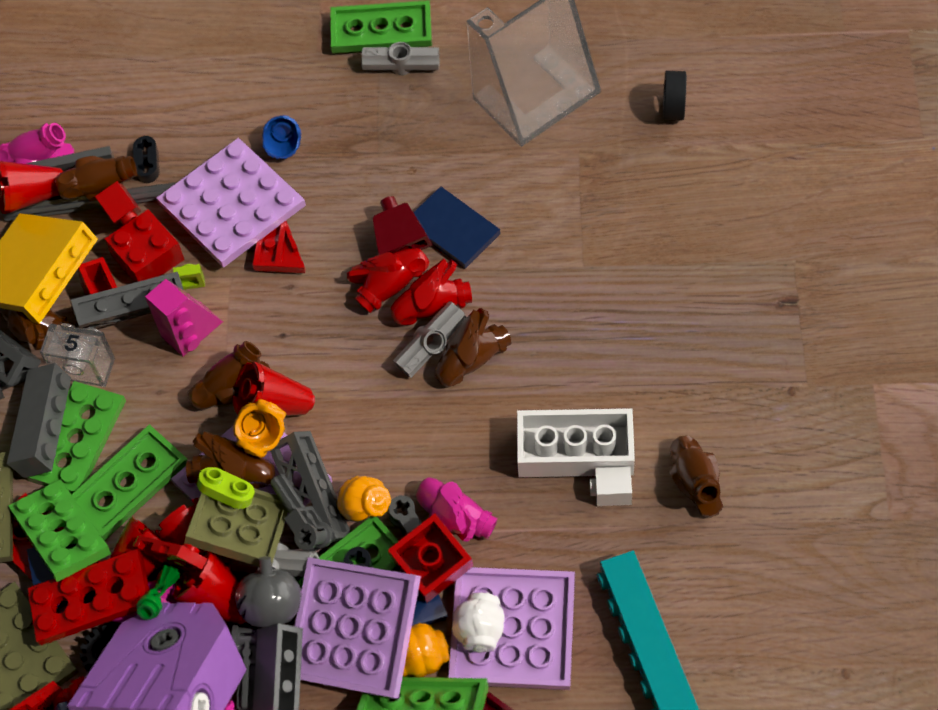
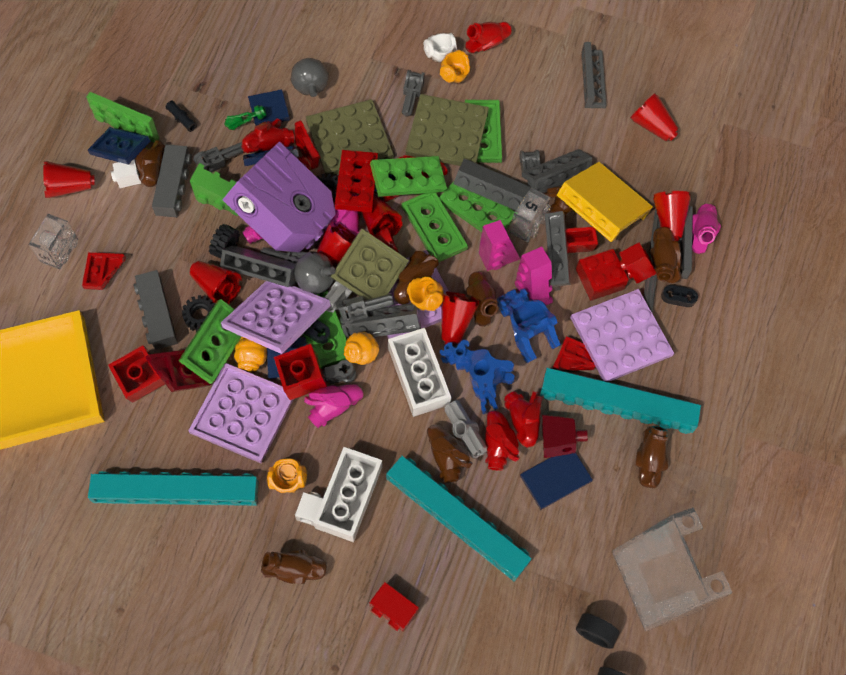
camera: 100 degrees right, 5 degrees up
(147, 376) = (496, 246): none -> dark pink wedge
(150, 604) = (352, 224): green piece -> none
(183, 557) = (360, 221): red wing -> none
(190, 276) = (572, 296): lime plate -> none
(225, 488) = (393, 265): lime plate -> none
(249, 303) = (528, 320): none -> blue animal
(281, 137) = (667, 383): blue hair -> none
(323, 186) = (620, 400): none -> teal brick
(343, 339) = (483, 370): none -> blue animal
(369, 16) = (743, 491): bright green plate -> none
(370, 418) = (419, 372): none -> white brick
(384, 130) = (652, 456): none -> reddish brown animal
(400, 58) = (715, 500): light grey piece -> none
(479, 622) = (247, 387): white hair -> none
(550, 314) = (458, 518): none -> teal brick
(582, 527) = (287, 476): none -> light orange hair
(625, 128) = (597, 630): none -> black tyre
(692, 346) = (393, 607): none -> red brick

